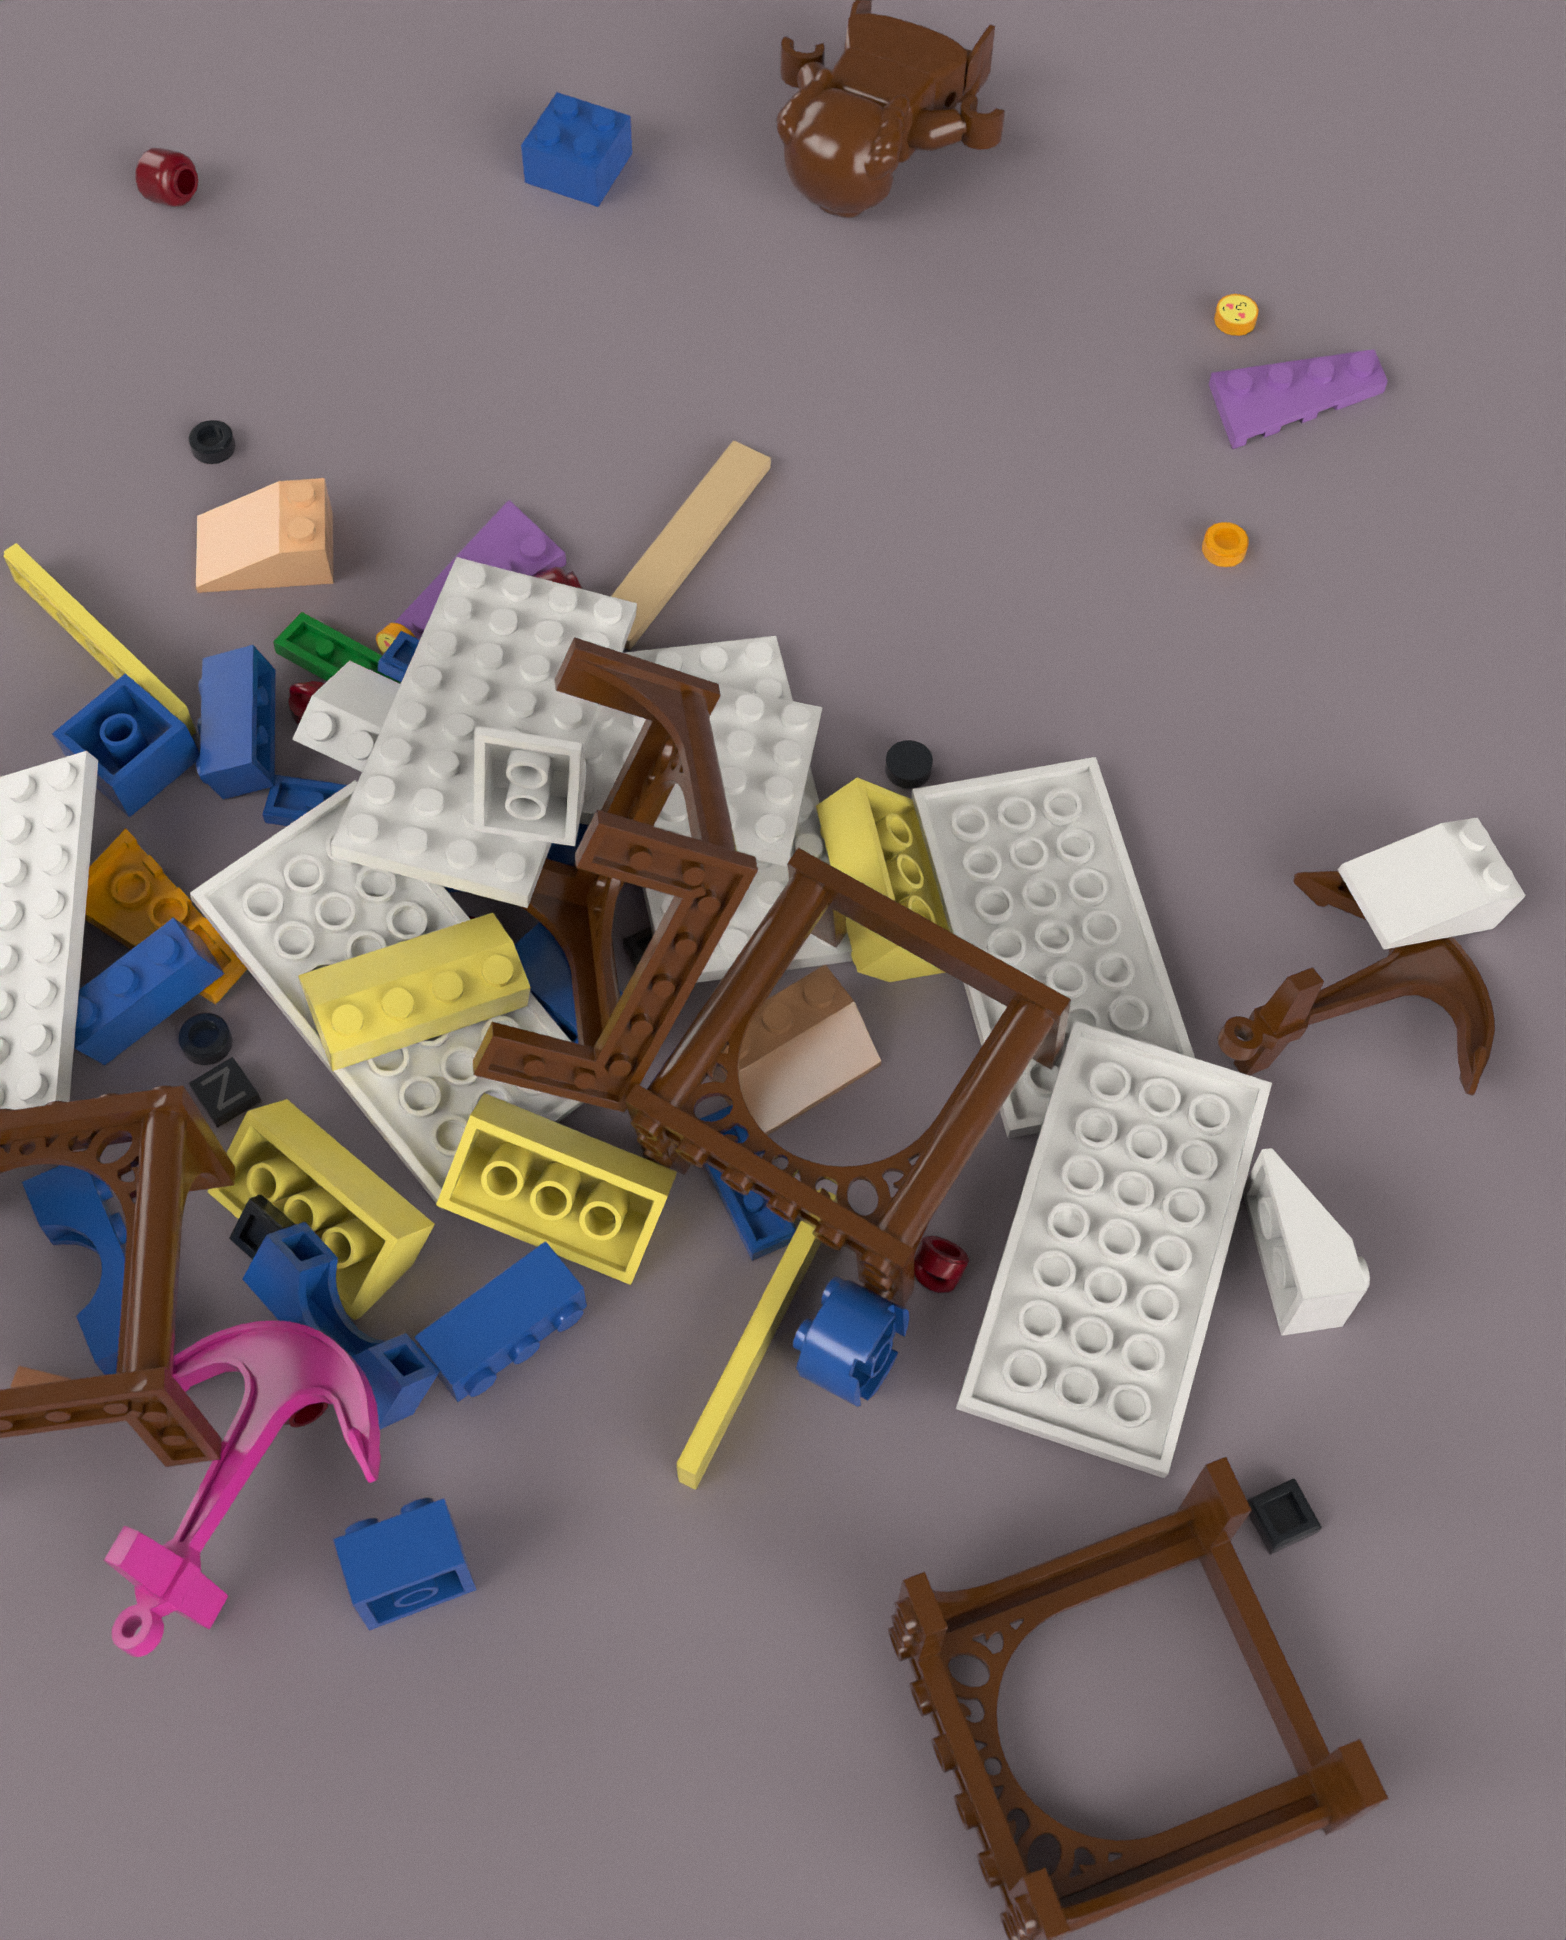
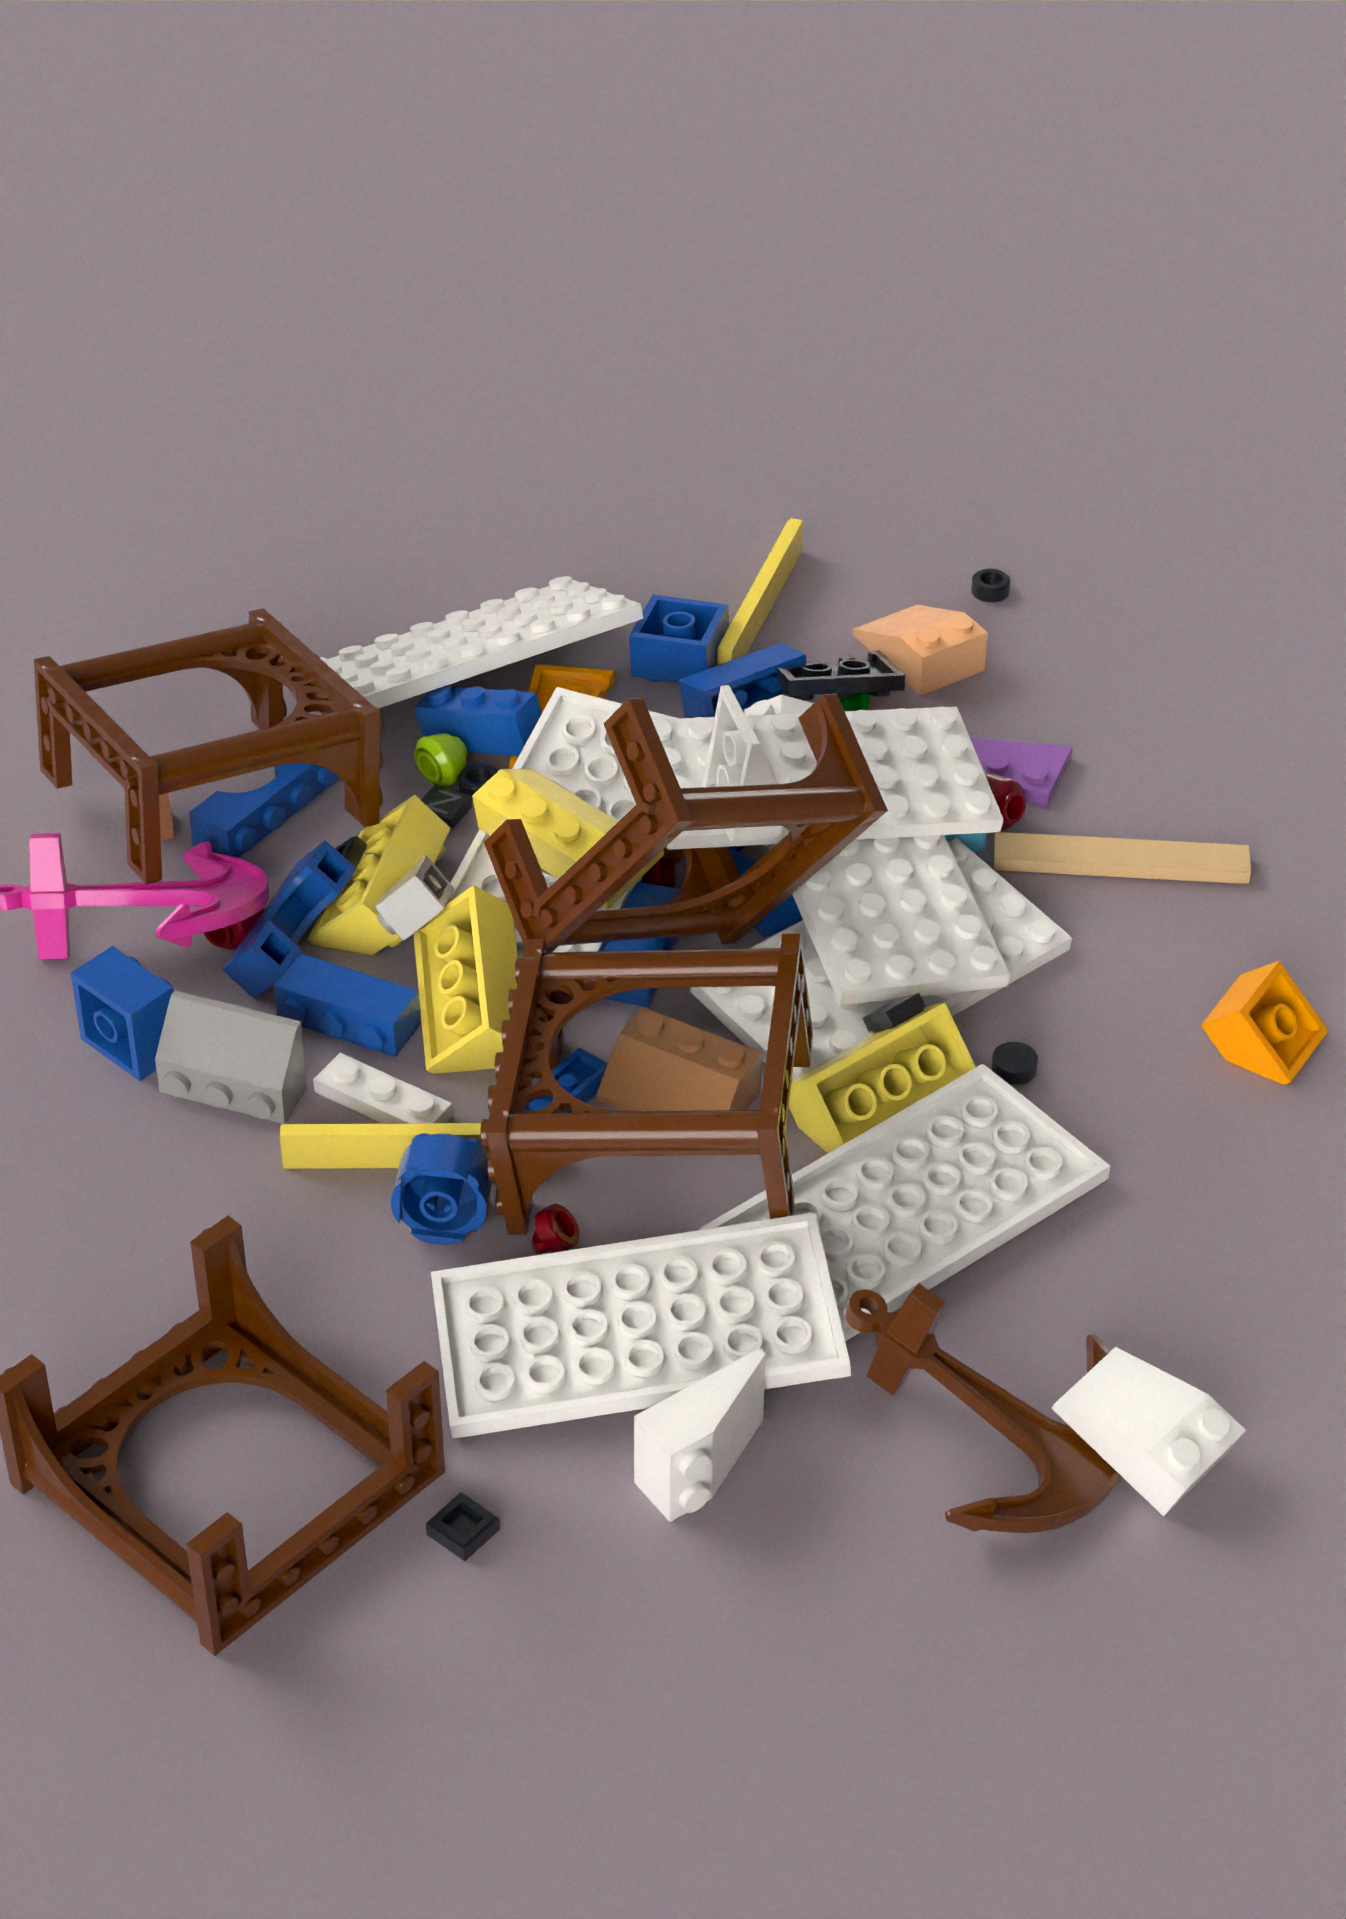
camera: 65 degrees right, 20 degrees down
(155, 1059) = (440, 758): none -> lime cone
(166, 177) = (1209, 461): dark red head -> none
(298, 629) = (874, 676): none -> black wing
(420, 1183) = (414, 899): none -> slope
(541, 1480) = (231, 1057): none -> light grey slope
(650, 1345) = (379, 1094): none -> white plate
(827, 826) = (894, 1013): none -> black tile
(974, 552) = (1265, 1024): none -> light orange slope

